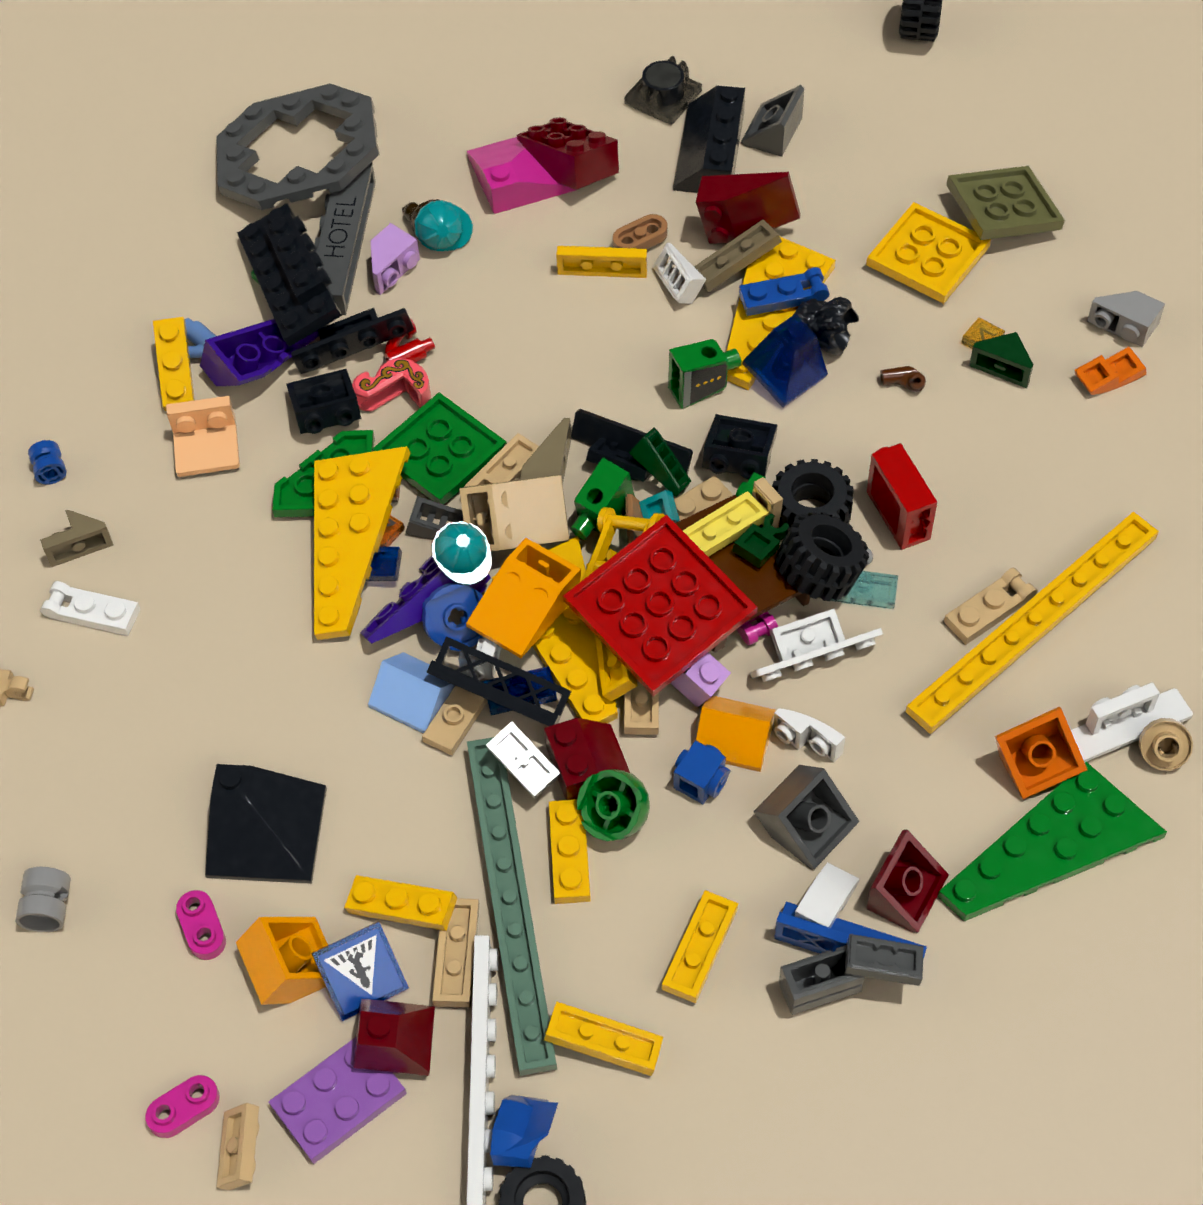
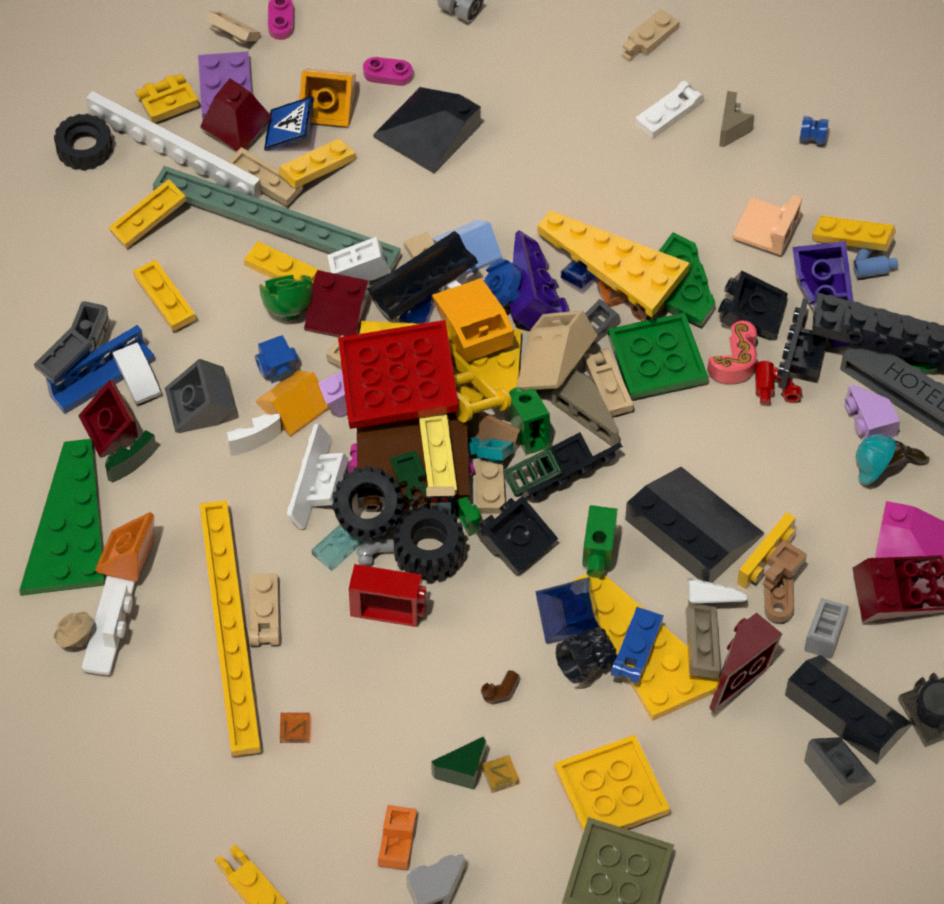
camera: 120 degrees right, 0 degrees up
(411, 1141) = (174, 100): none -> yellow plate
(462, 553) = (536, 293): teal piece -> none
(519, 1129) = (130, 146): blue slope -> none
(612, 230) = (784, 560): none -> medium nougat plate
(614, 327) = (691, 524): none -> black slope
(651, 183) = (821, 643): none -> light grey slope
(944, 834) = (126, 461): none -> dark green slope
(1082, 508) = (294, 727): none -> clear orange tile

